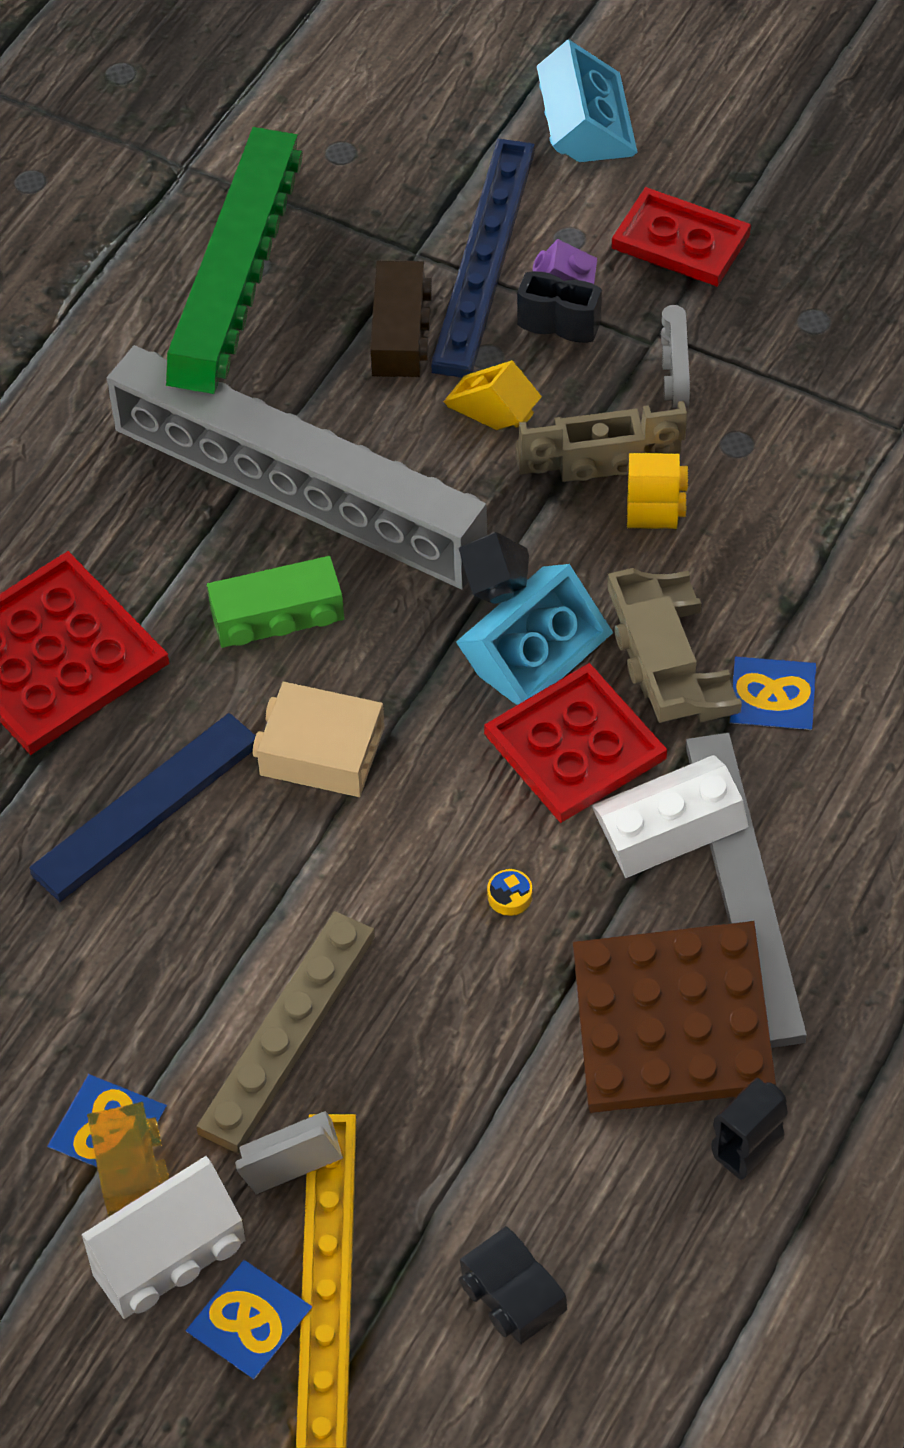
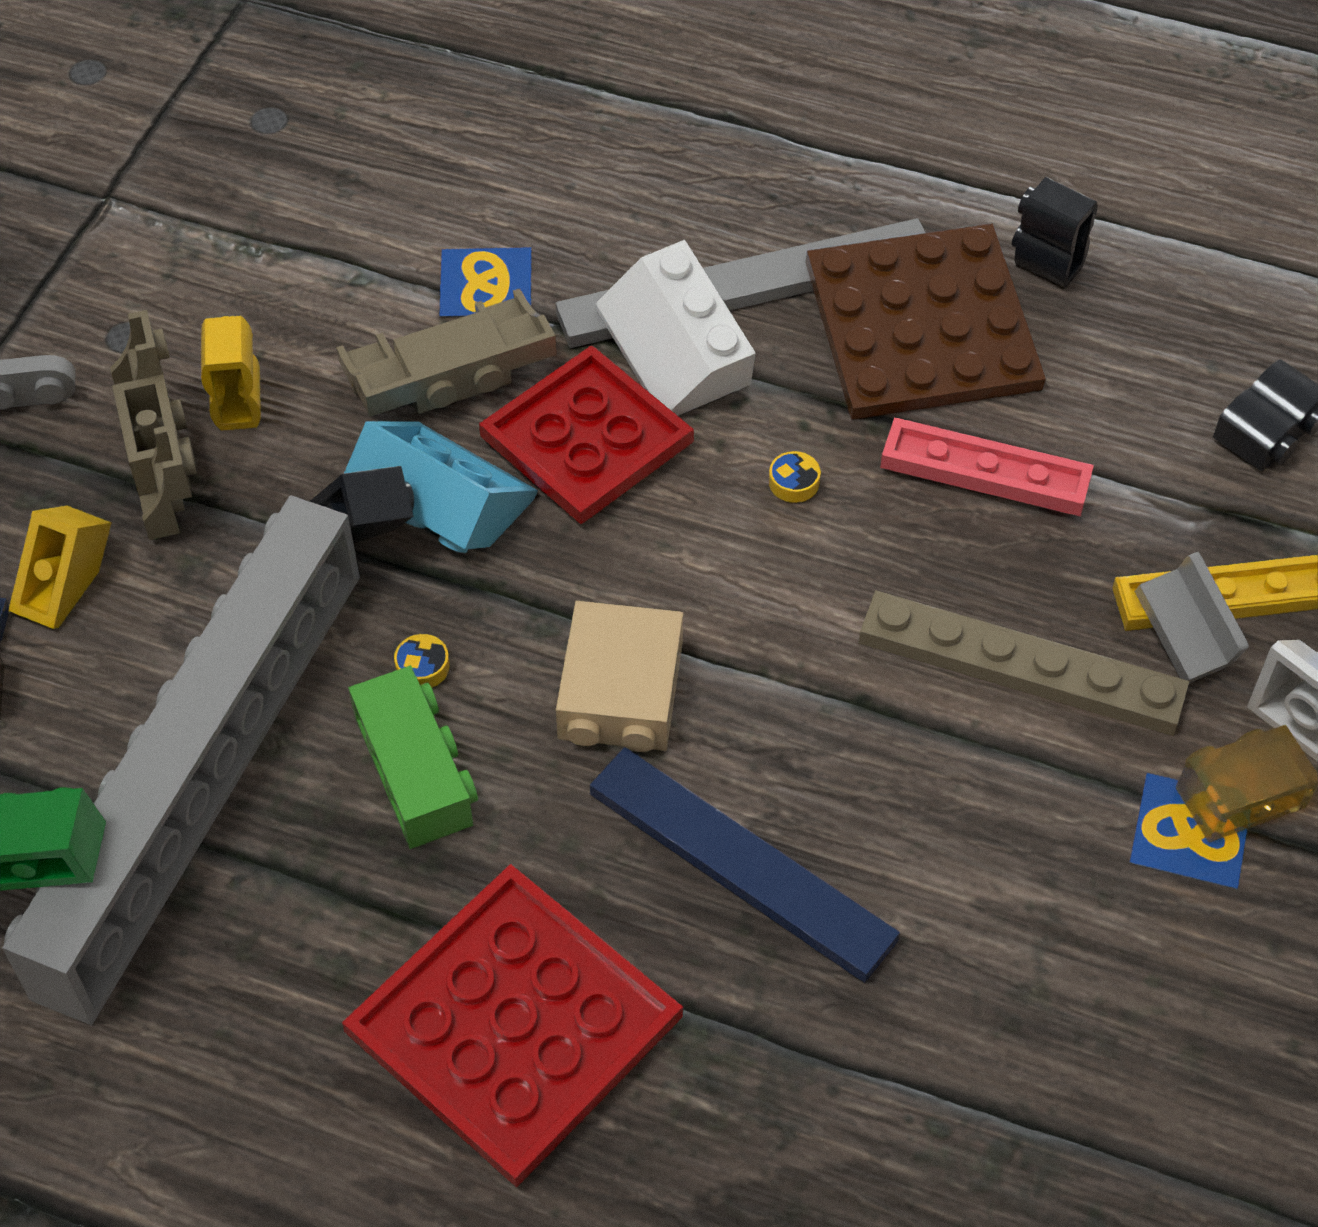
camera: 100 degrees left, 0 degrees up
(367, 619) = (426, 656): none -> tile
(491, 1037) = (987, 466): none -> coral plate

